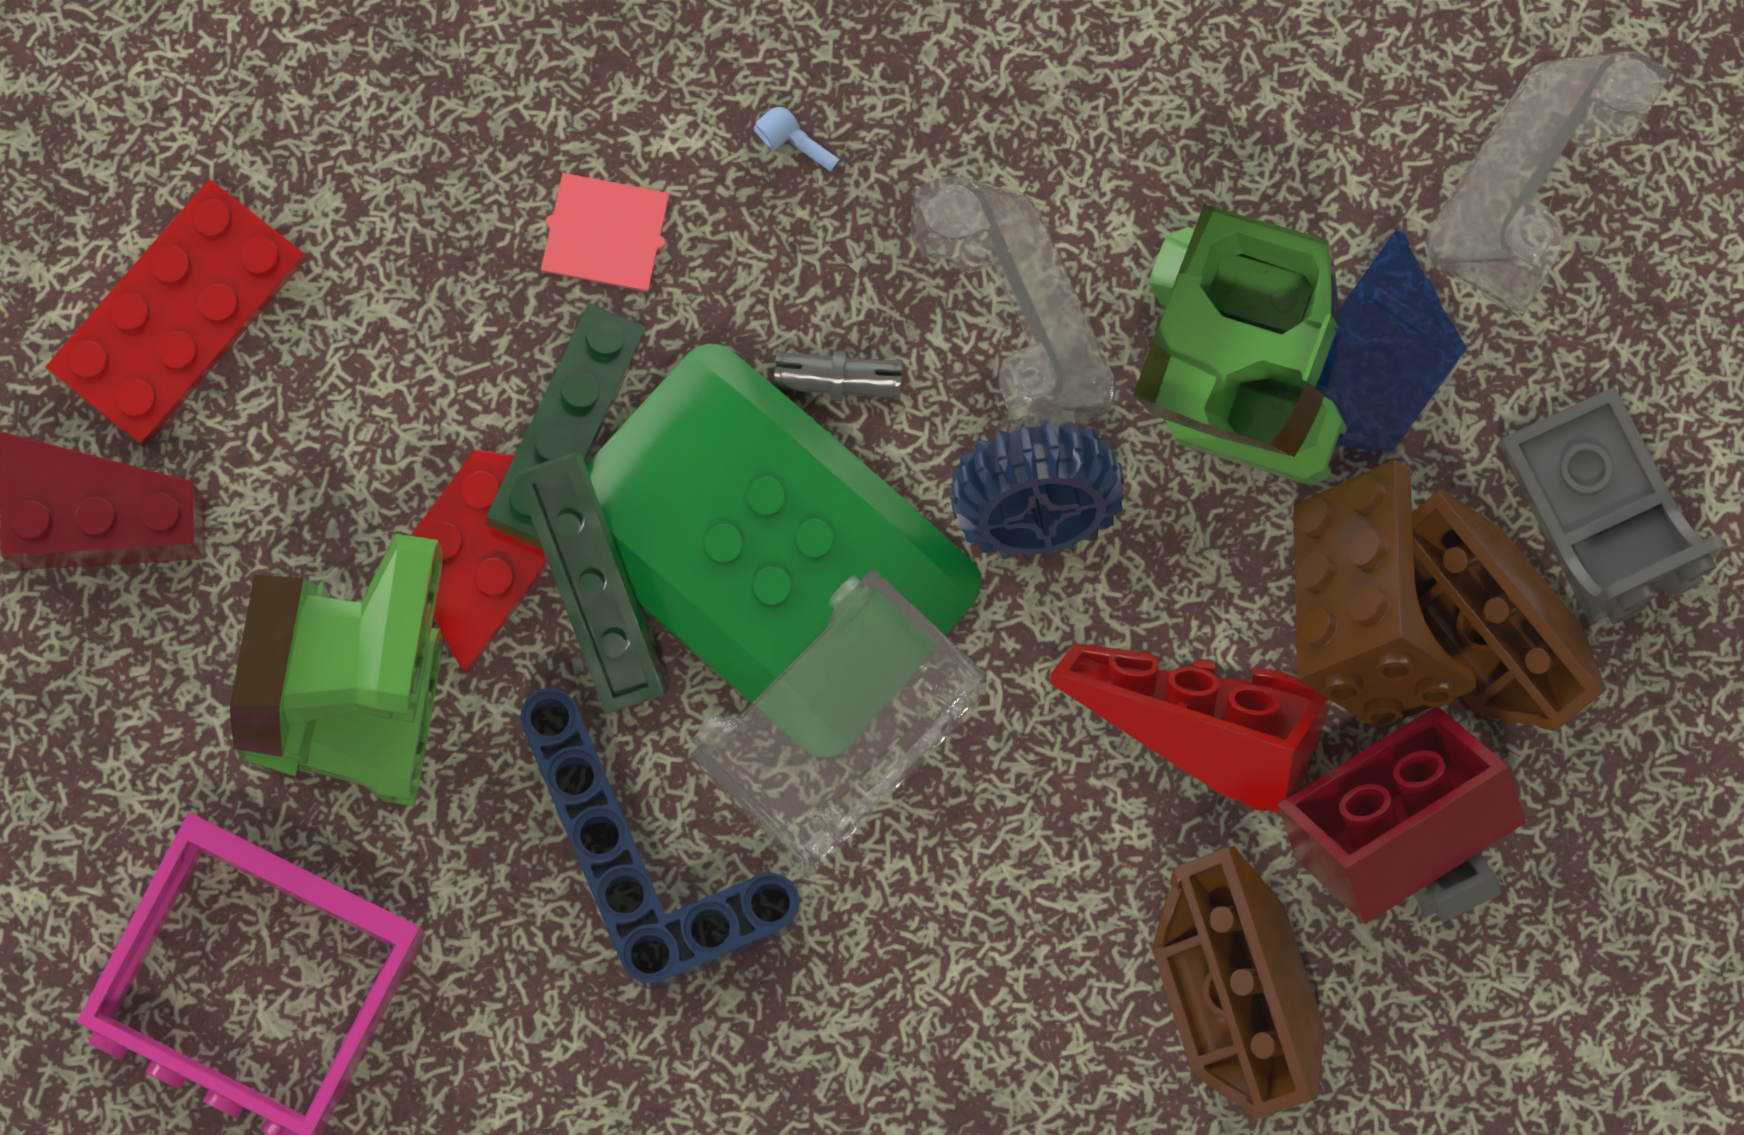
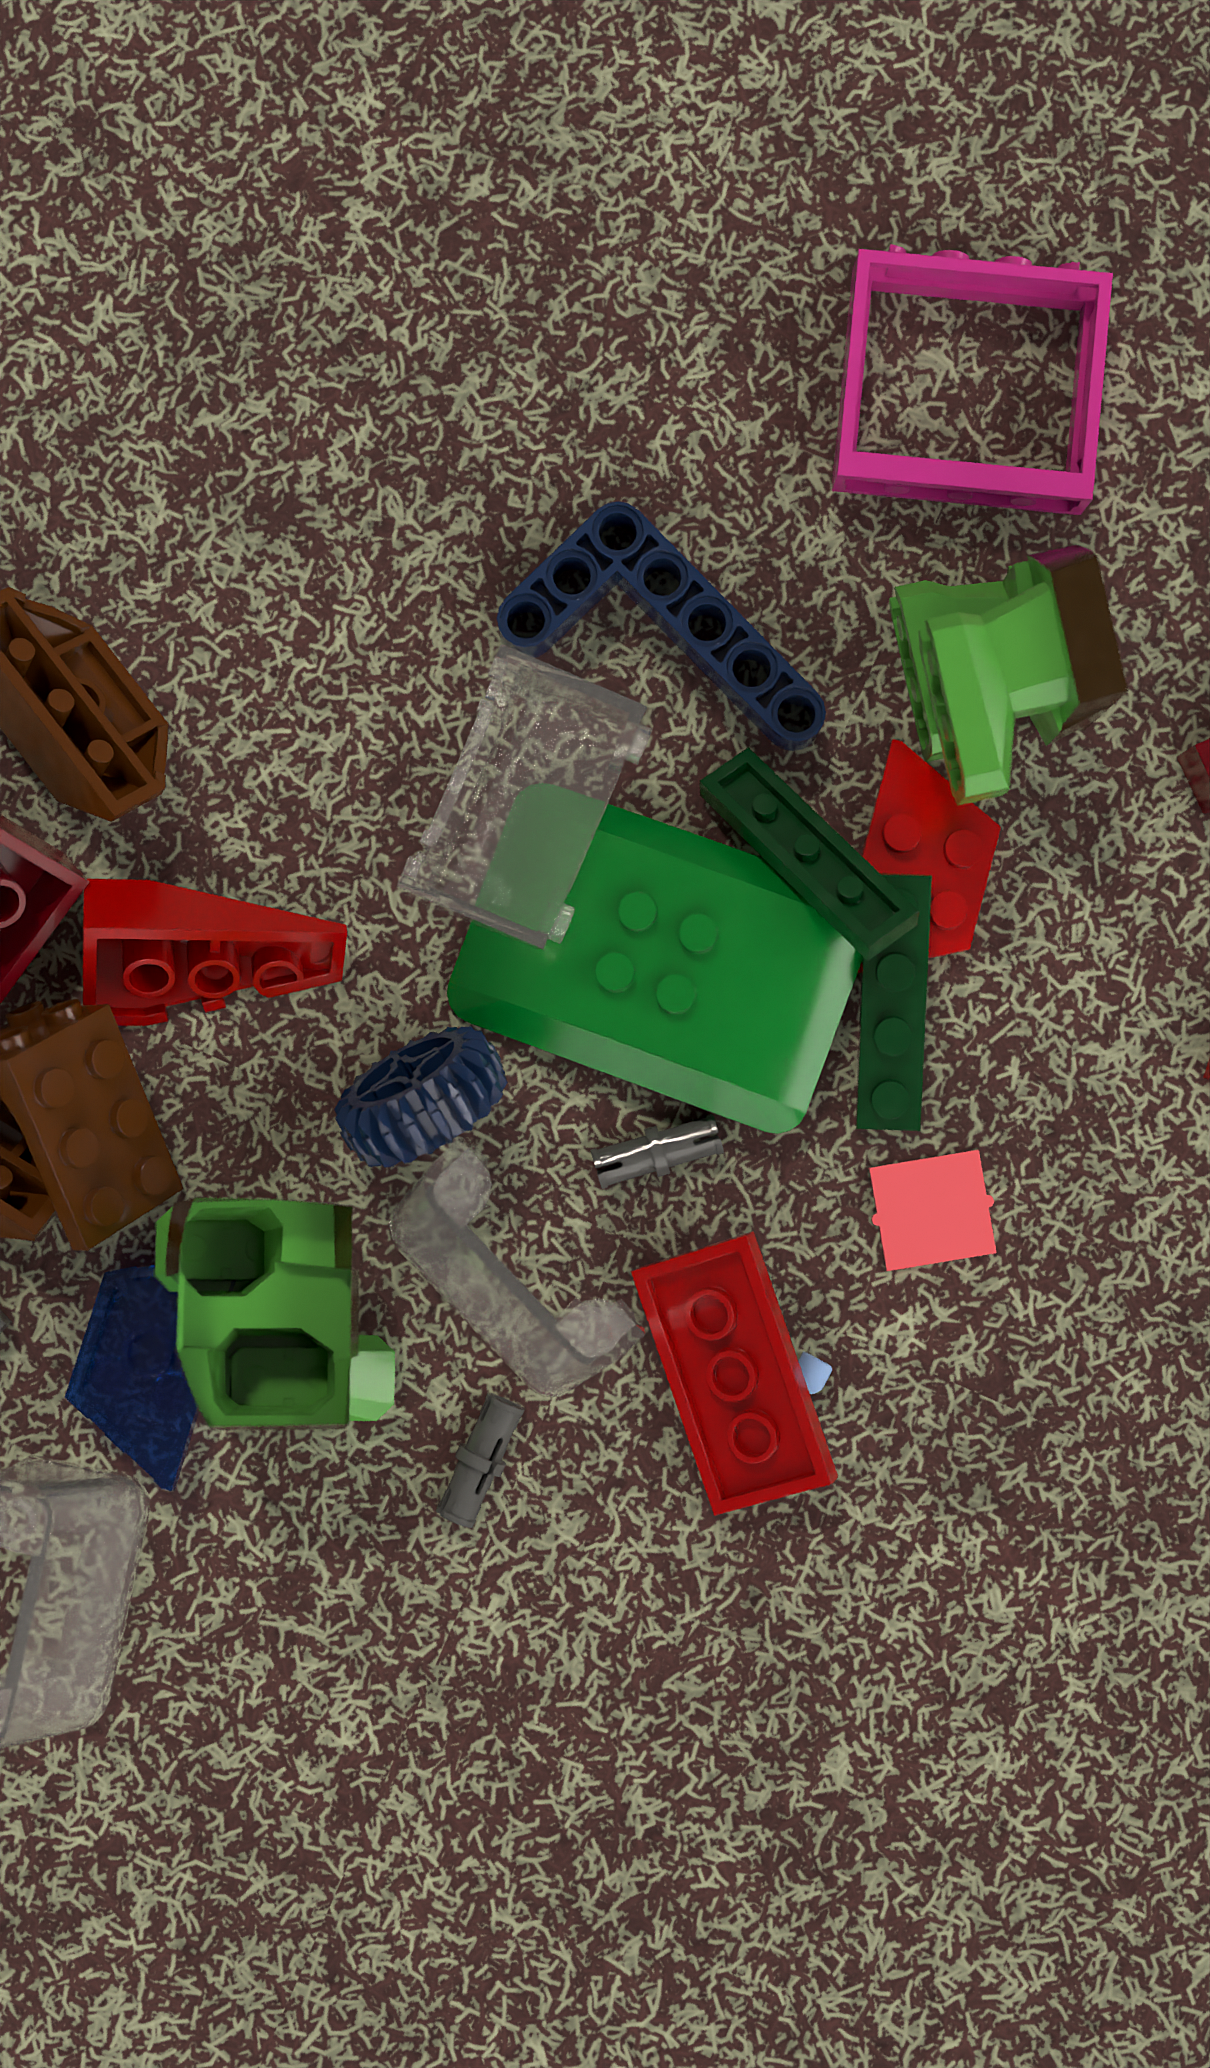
camera: 160 degrees right, 10 degrees up
(845, 150) = (734, 1374): none -> red plate
(1107, 162) = (480, 1460): none -> dark grey pin

